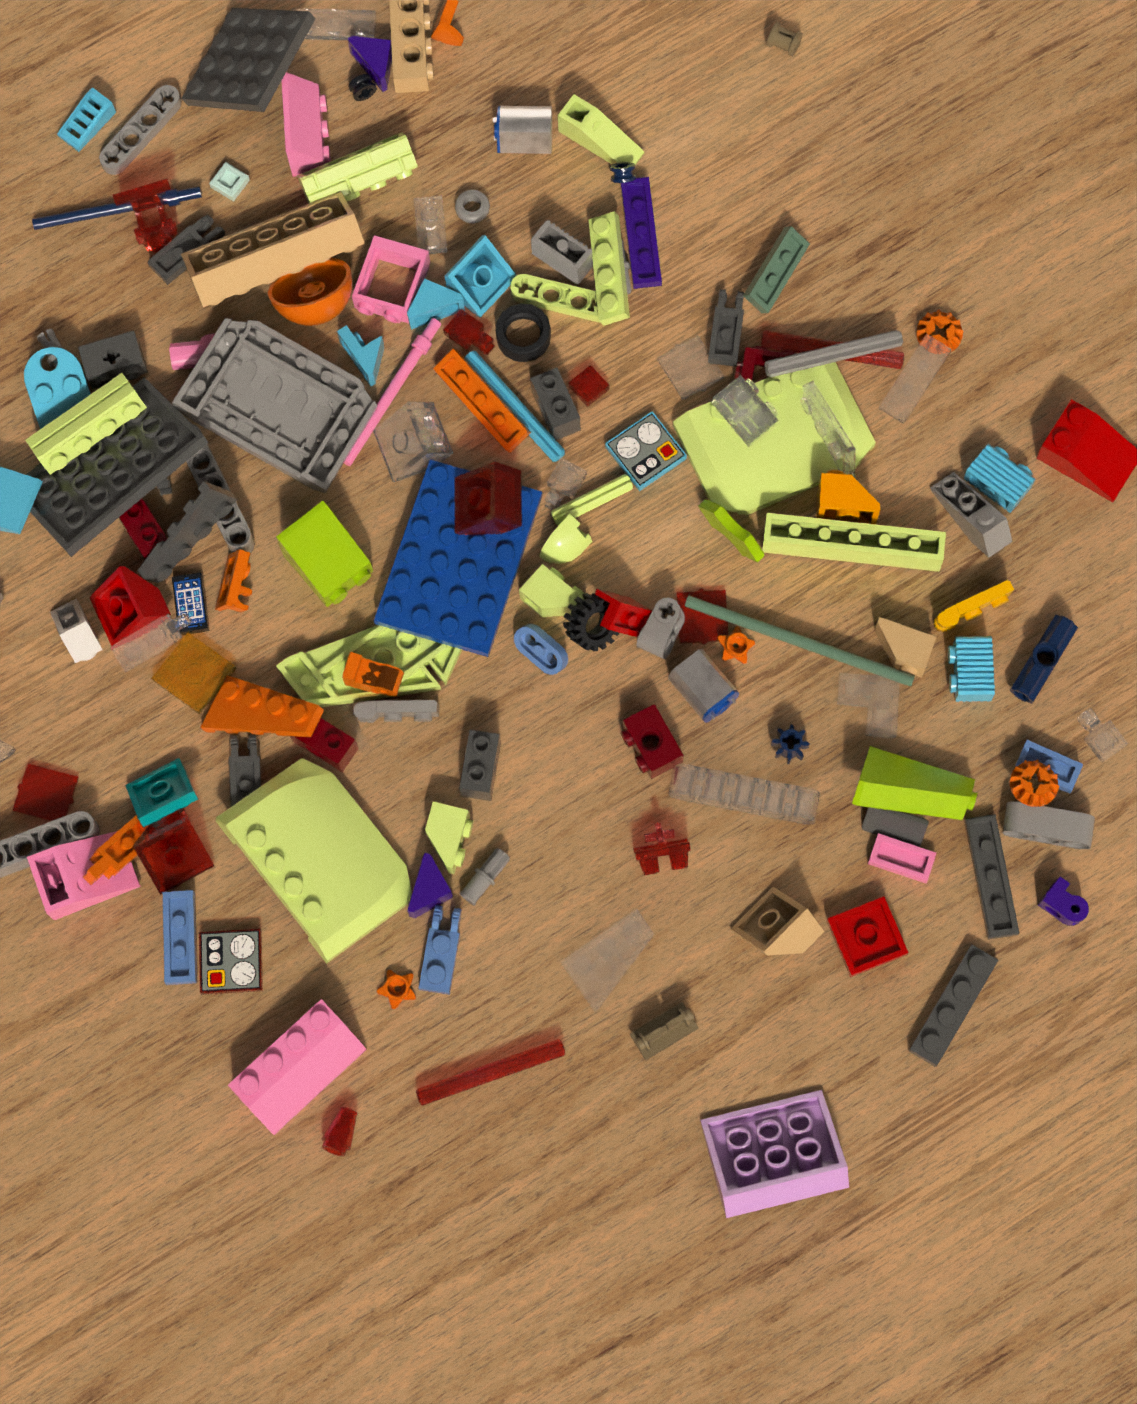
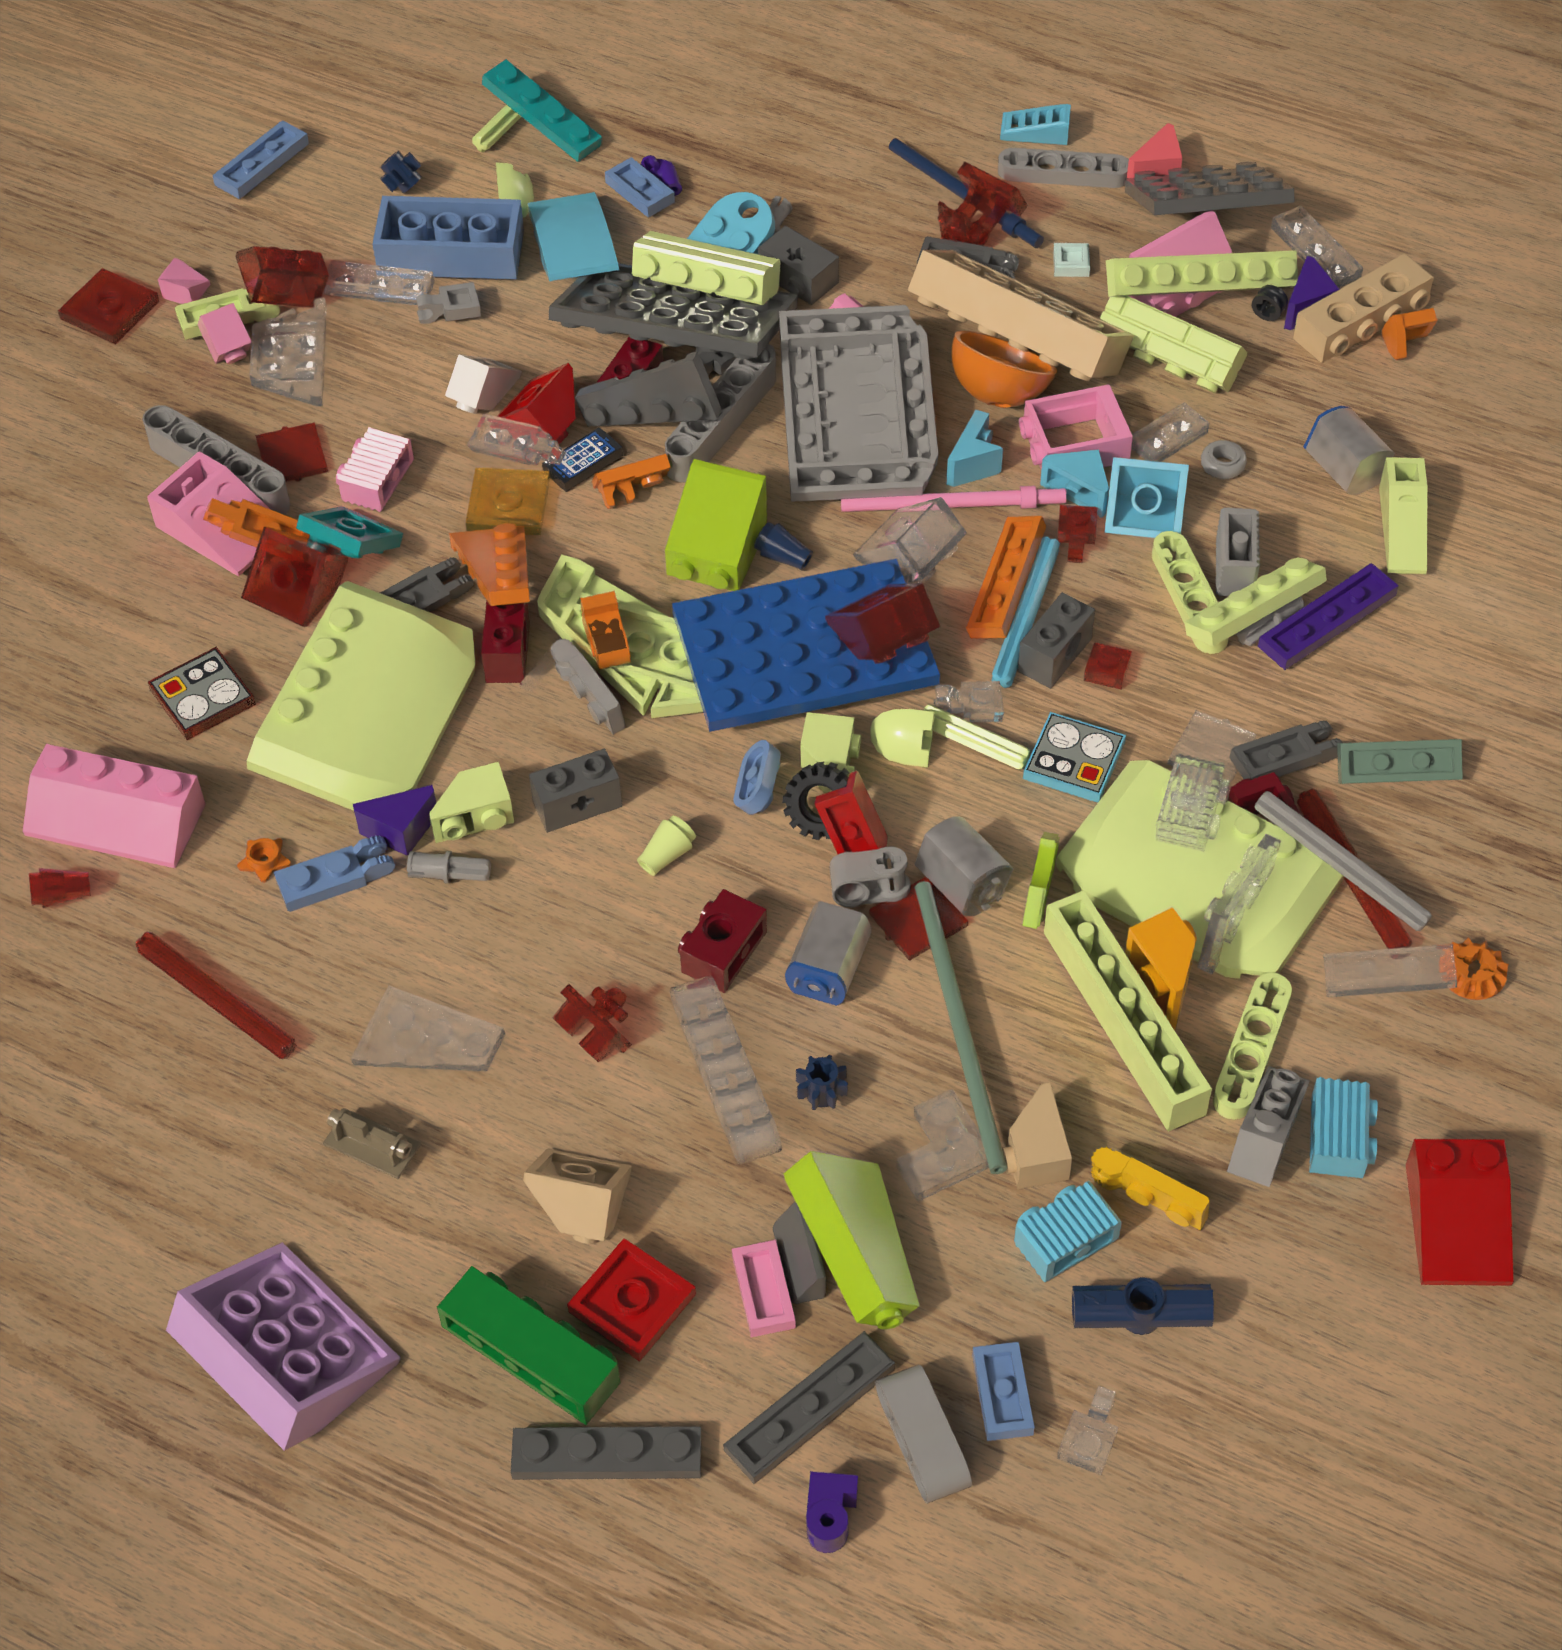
camera: 55 degrees right, 20 degrees down
(108, 745) = (374, 469): none -> bright pink brick
(179, 937) = (199, 633): medium blue plate -> none
(183, 63) = (1157, 154): none -> coral slope
(321, 114) = (1201, 273): none -> yellowish green plate
(362, 521) = (781, 546): none -> dark blue cone
(519, 312) = (1112, 594): black tyre -> none
(556, 733) = (666, 845): none -> yellowish green cone
(622, 172) = (1380, 557): dark blue bush -> none
(693, 568) = (963, 866): none -> flat silver piece
(741, 640) = (906, 955): orange plate -> none
(866, 1011) = (530, 1344): none -> green brick
(909, 489) = (1251, 1044): none -> yellowish green beam
(1023, 789) = (955, 1392): orange gear -> none

